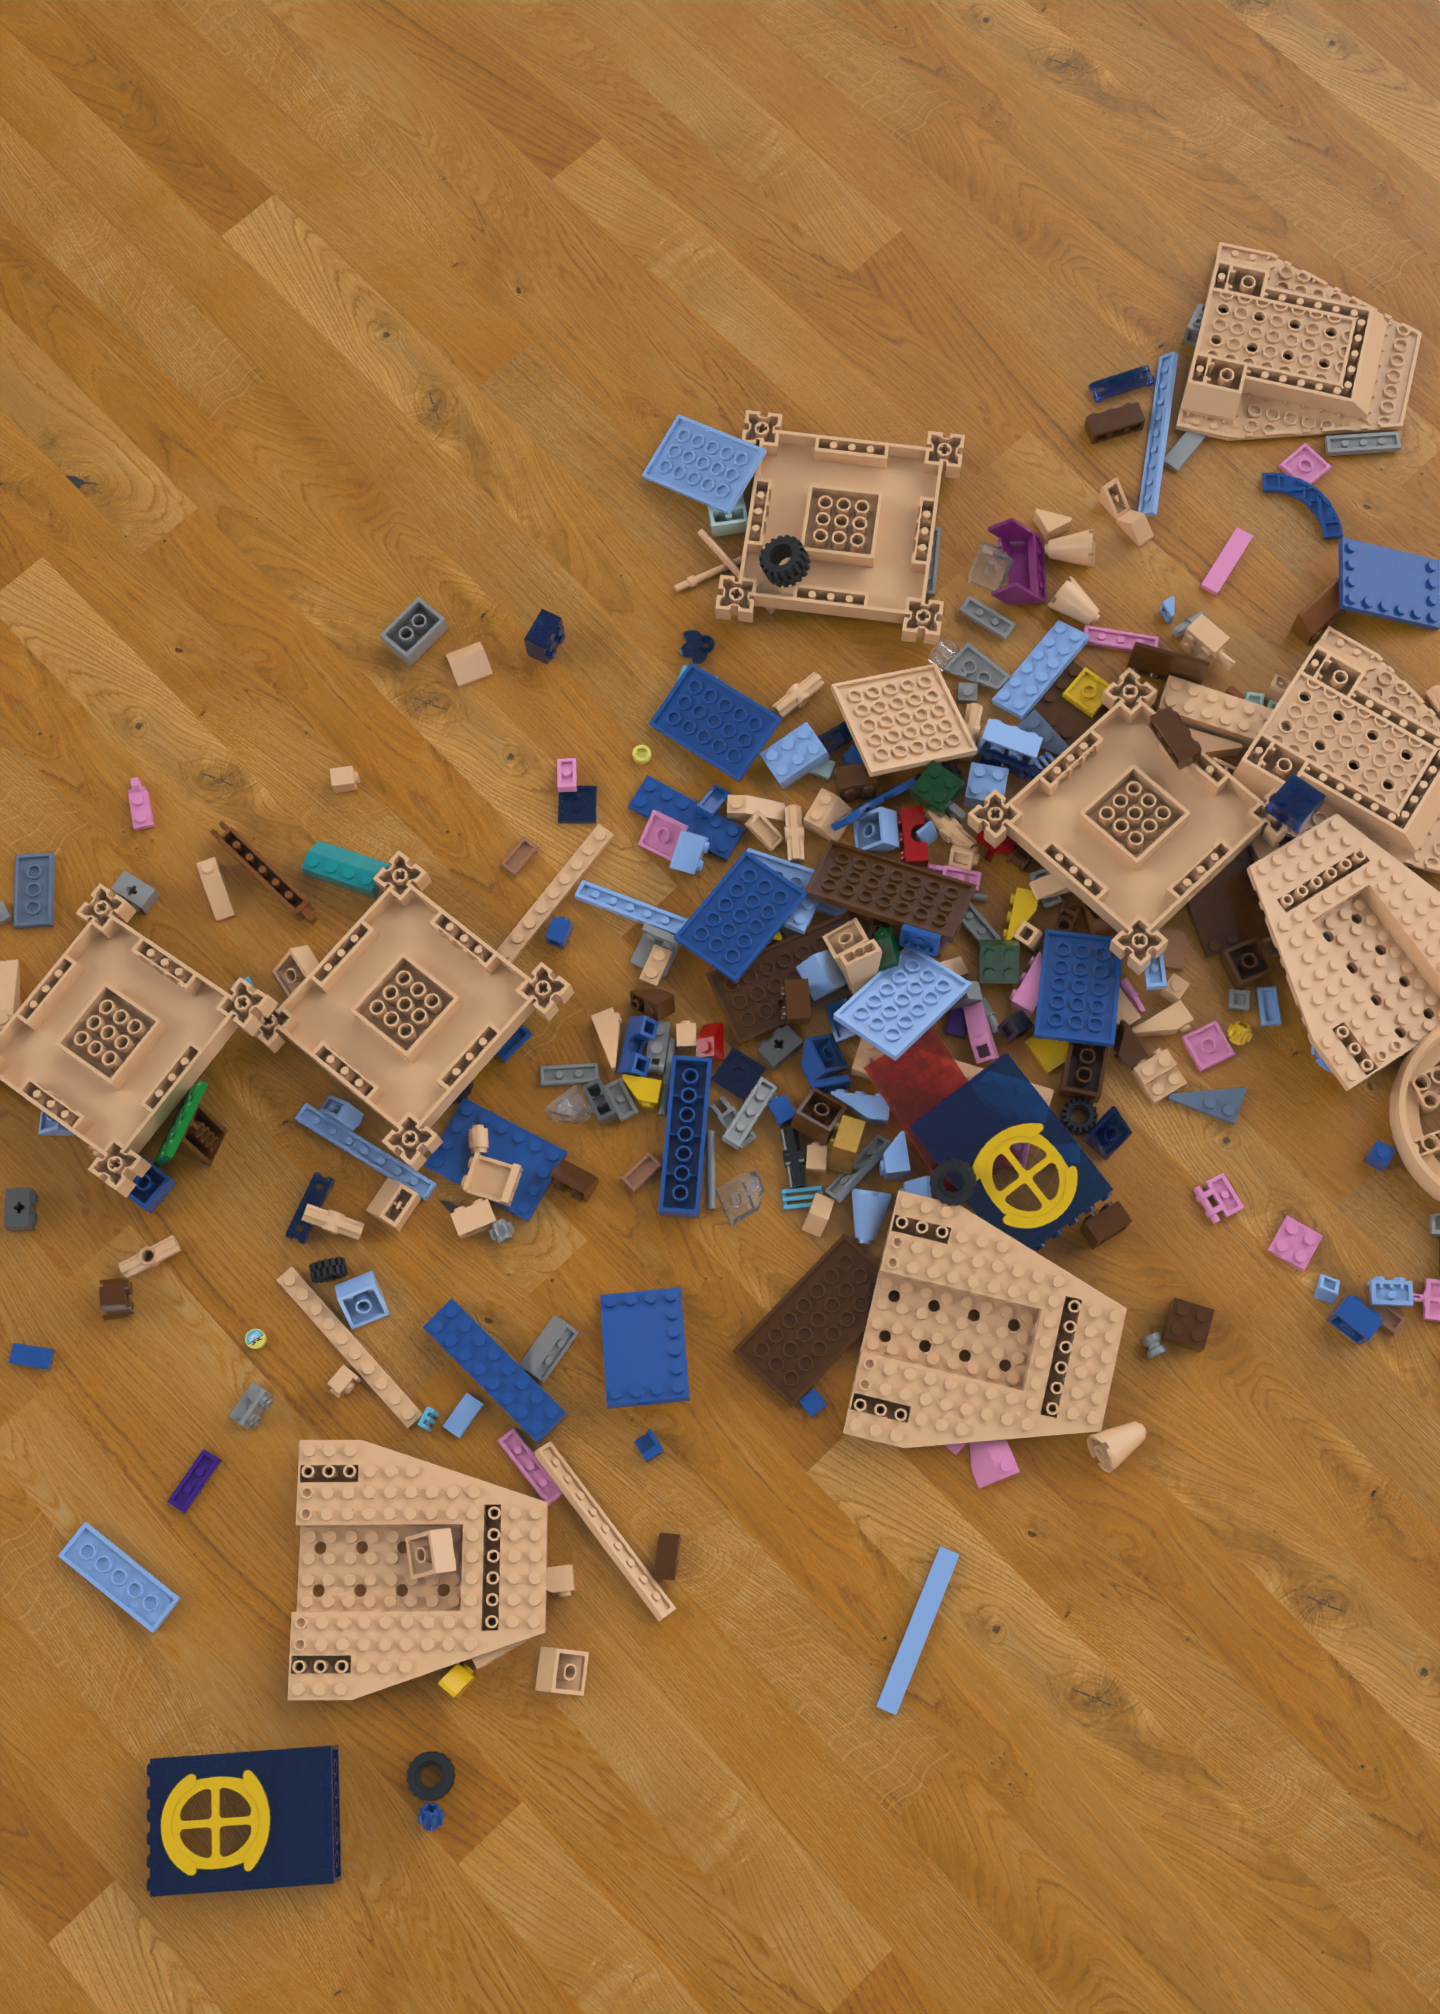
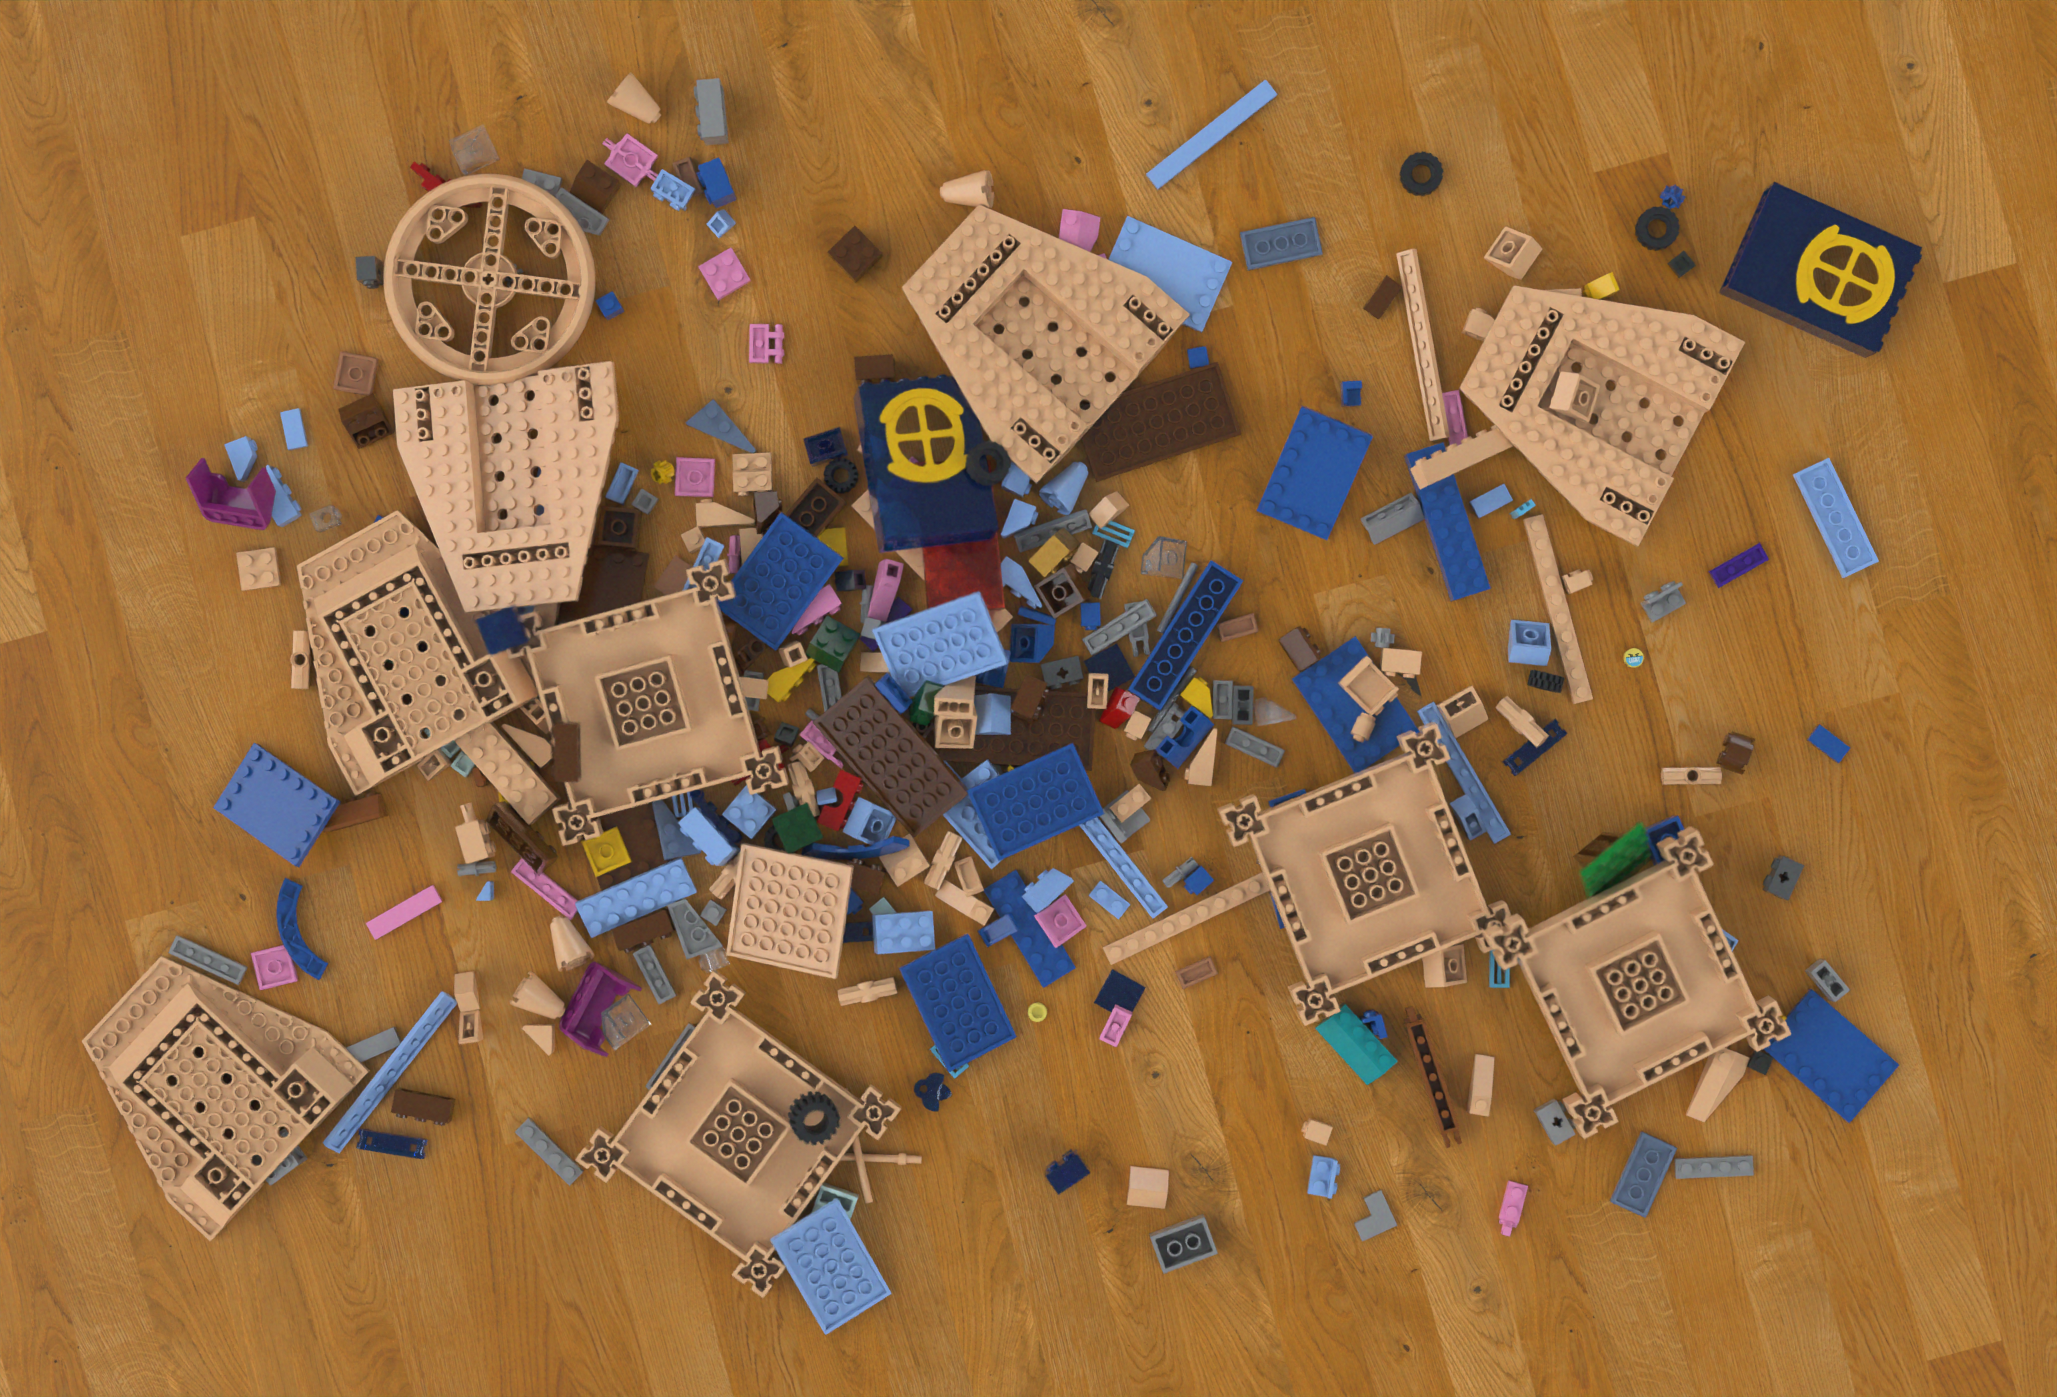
camera: 155 degrees left, 15 degrees up
(253, 738) = (1380, 1218): none -> light grey tile
(320, 747) = (1323, 1176): none -> light blue bracket
(342, 894) = (1377, 1024): none -> blue bracket
(389, 1751) = (1681, 264): none -> pearl dark grey plate
(513, 1433) = (1459, 457): none -> light nougat brick
(578, 931) = (1180, 872): none -> light grey axle
(629, 877) = (1109, 899): none -> light blue plate
(704, 1714) = (1421, 159): none -> black tyre
(738, 1043) = (1097, 691): none -> light nougat slope
(792, 1557) = (1281, 243): none -> sand blue tile
(882, 1476) = (1177, 267): none -> light blue plate
(992, 442) = (549, 1151): none -> light grey plate
(992, 867) = (786, 734): none -> pearl dark grey plate
(1018, 646) = (643, 931): none -> reddish brown brick
(1153, 1344) = (892, 253): light grey wheel -> none
(1401, 1385) = (711, 111): none -> light grey brick

